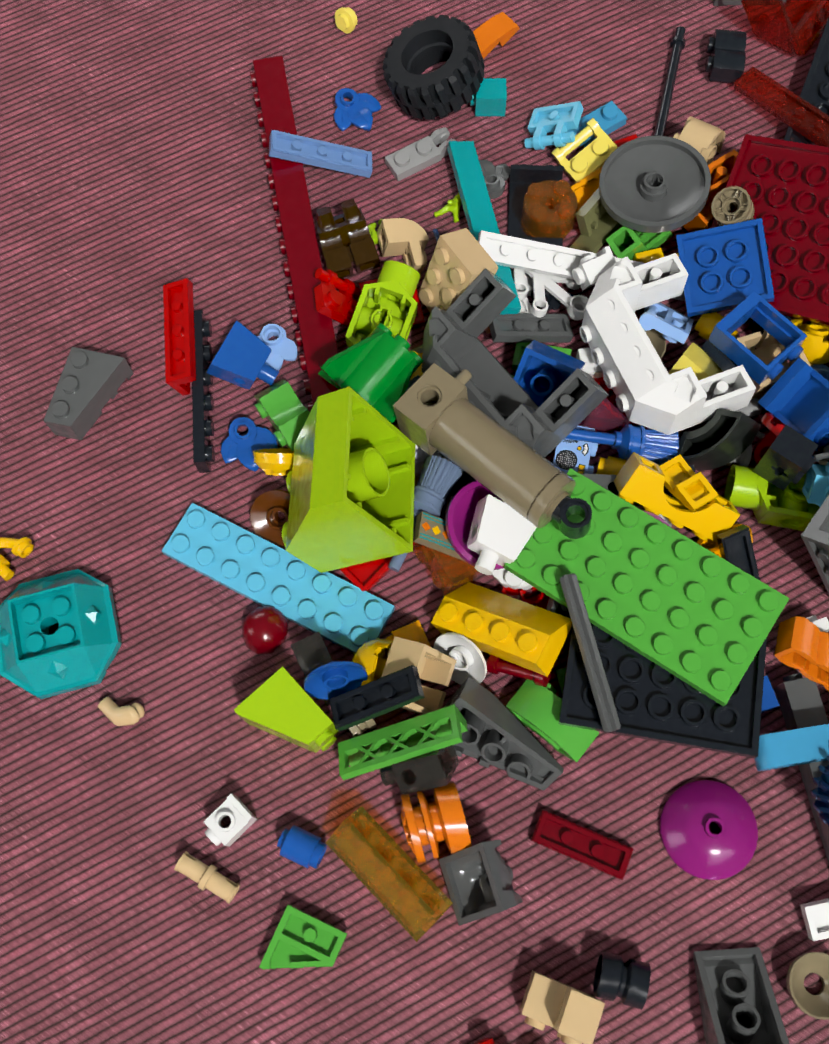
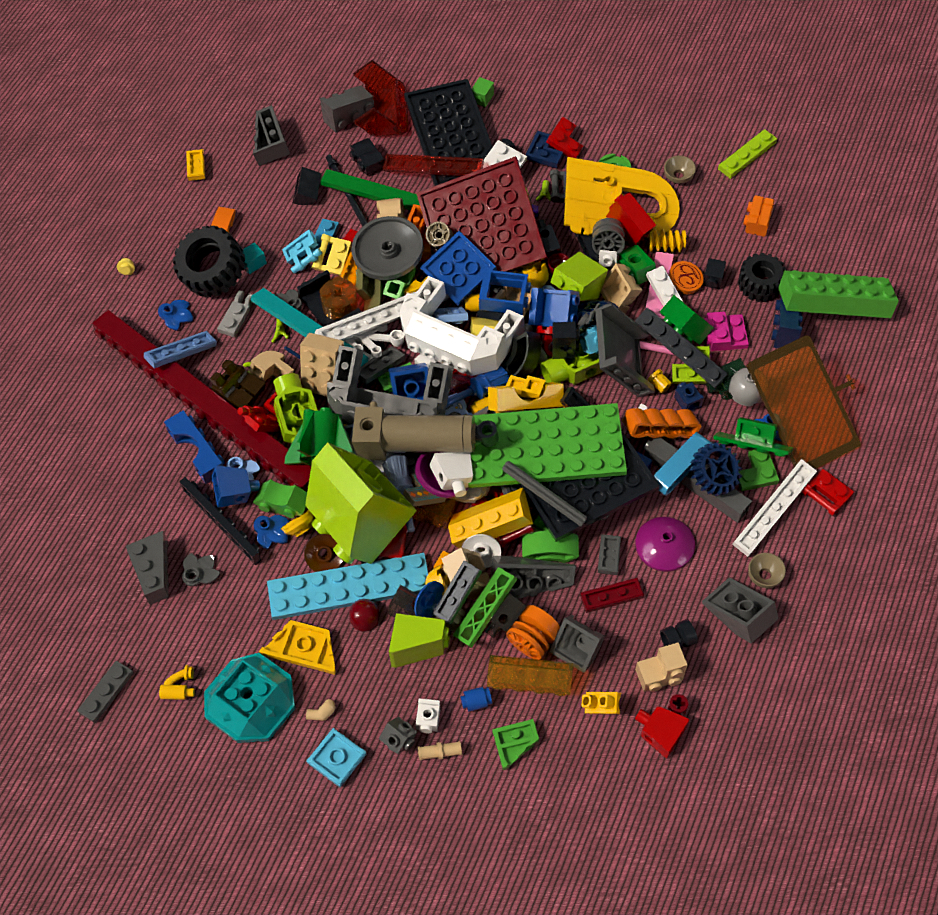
camera: 40 degrees left, 10 degrees down
(89, 785) = (336, 757): none -> medium azure plate
(138, 433) = (201, 568): none -> dark grey plate
(165, 616) = (302, 646): none -> yellow wing
(173, 819) = (398, 735): none -> dark grey brick
(179, 335) = (184, 497): red fence -> none
(249, 252) = (183, 430): none -> blue arch
(447, 988) = (601, 702): none -> yellow hips
(592, 267) = (391, 311): white brick -> none
(621, 788) = (609, 554): none -> dark grey plate
(624, 50) = (306, 187): none -> black brick
(692, 93) = (367, 188): none -> green tile

